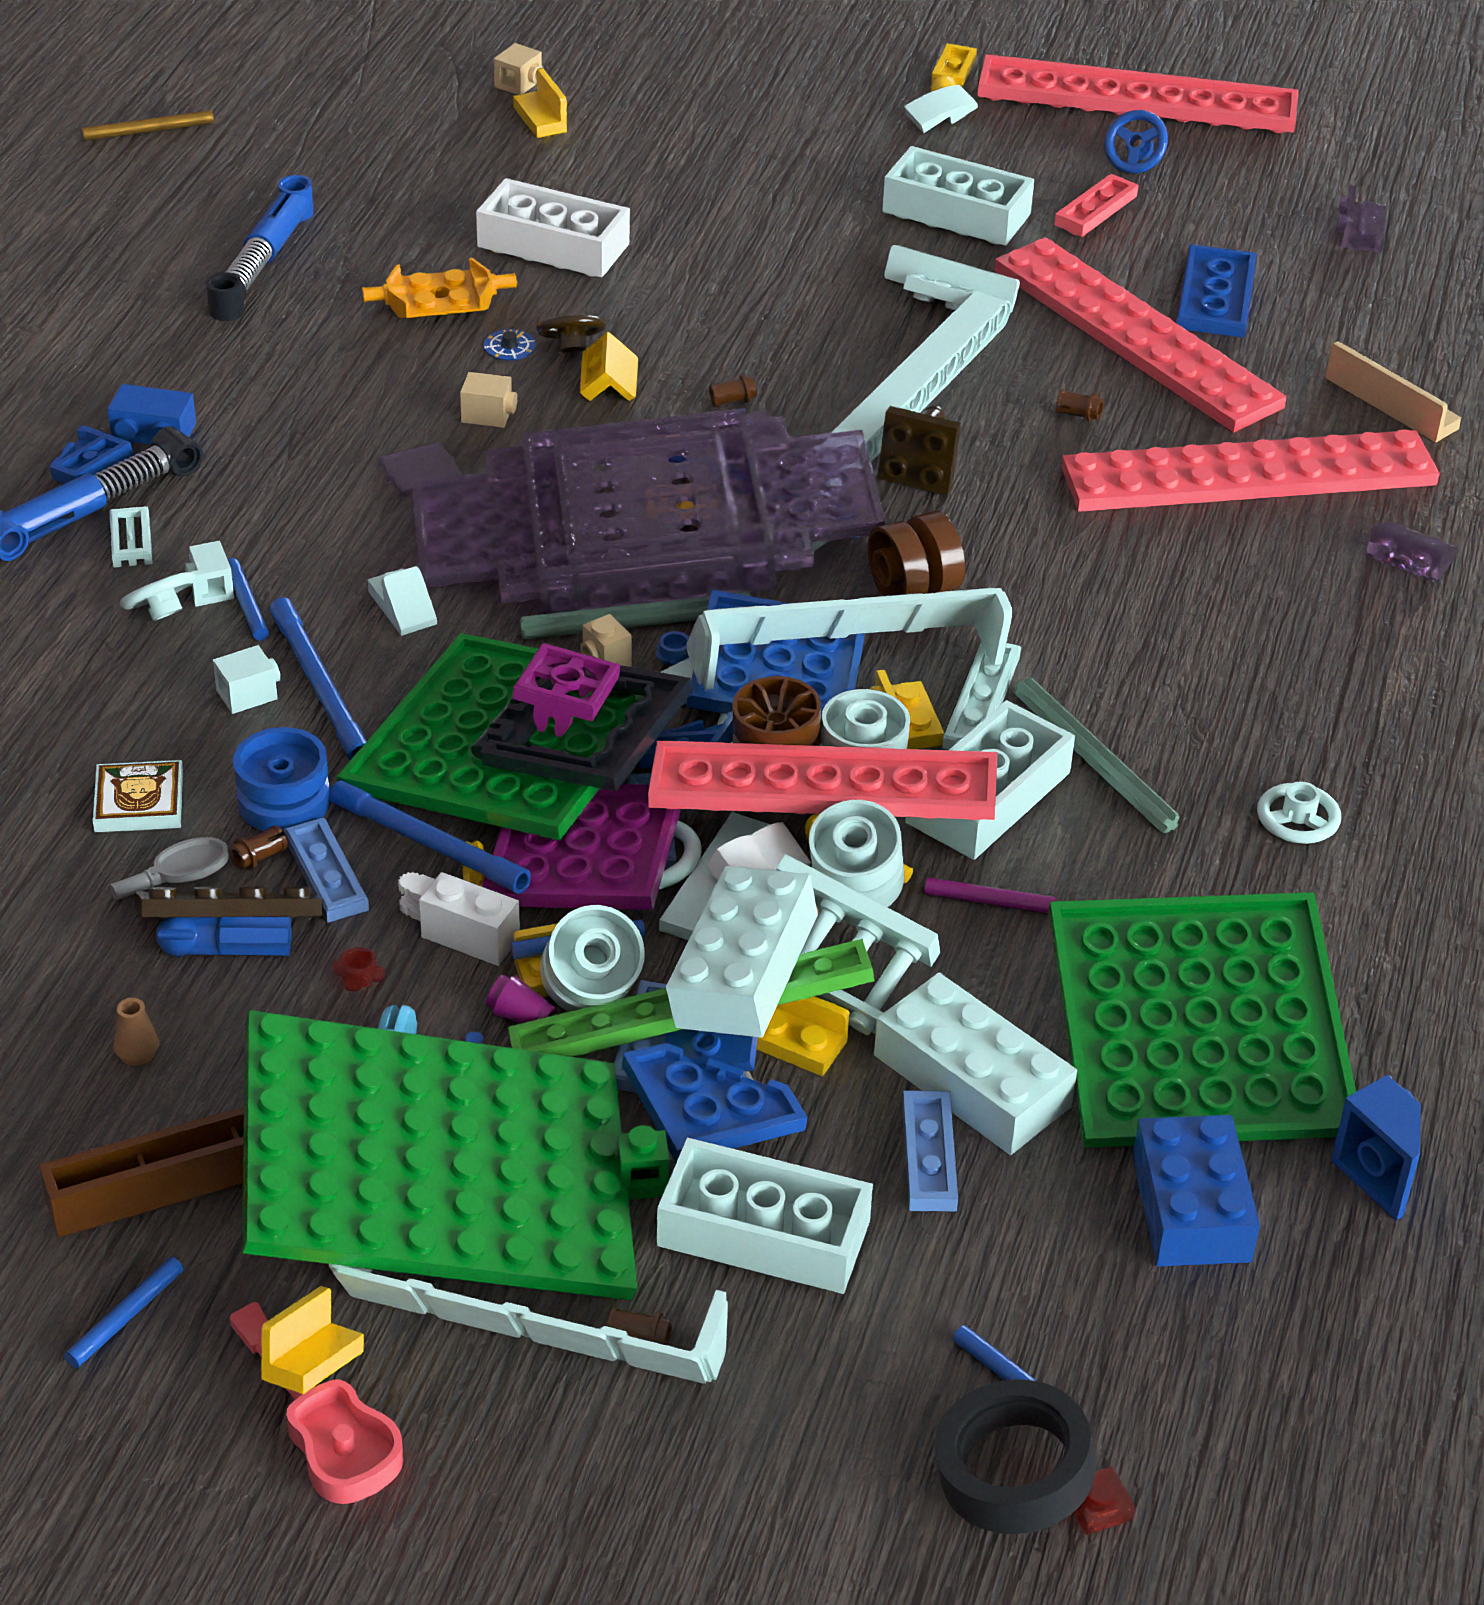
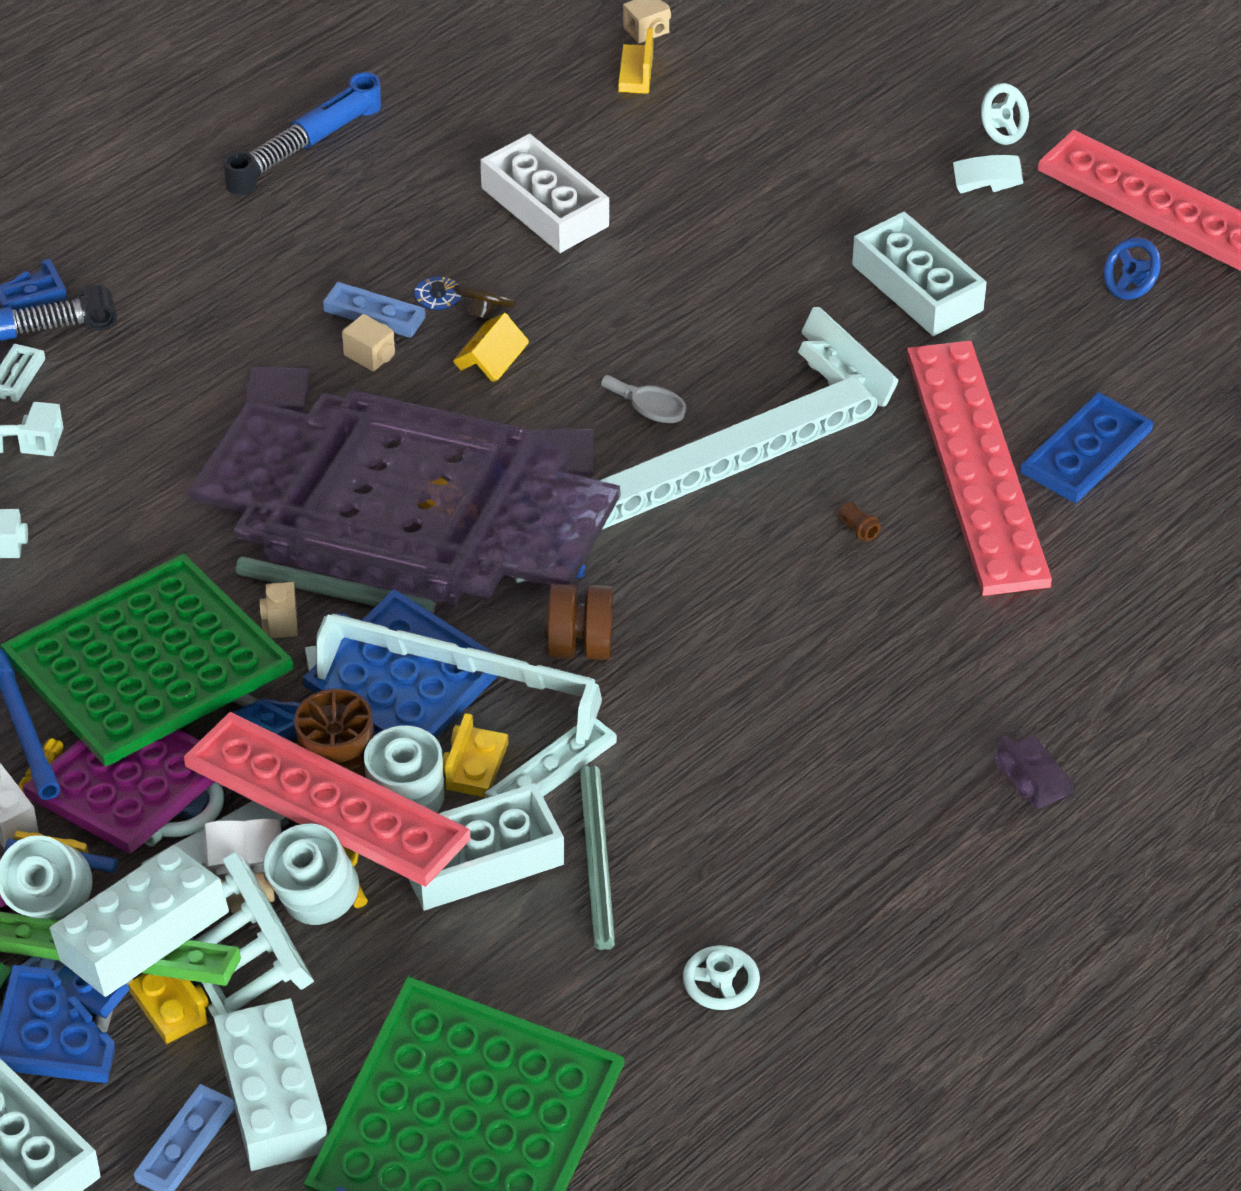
camera: 30 degrees right, 5 degrees up
(142, 411) = (101, 263): blue brick -> none
(247, 601) = (57, 461): blue bar -> none
(292, 628) = (70, 498): blue piece -> none
(403, 599) = (169, 506): light aqua slope -> none
(440, 292) = (391, 217): light orange plate -> none
(451, 371) = (353, 302): none -> medium blue plate
(505, 738) = (201, 705): black hinge -> none
(551, 661) = (209, 625): magenta piece -> none
(733, 391) = (576, 403): reddish brown pin -> none
(797, 368) = (649, 400): none -> light grey piece
(911, 60) = (1001, 114): none -> light aqua piece
(919, 449) = (670, 517): dark brown plate -> none
(953, 66) = (1035, 134): yellow plate -> none
(988, 895) = (410, 946): magenta bar -> none
(1096, 205) = (1046, 322): coral plate -> none
(1248, 470) = (961, 639): coral plate -> none
(1390, 393) = (1153, 611): tan panel -> none

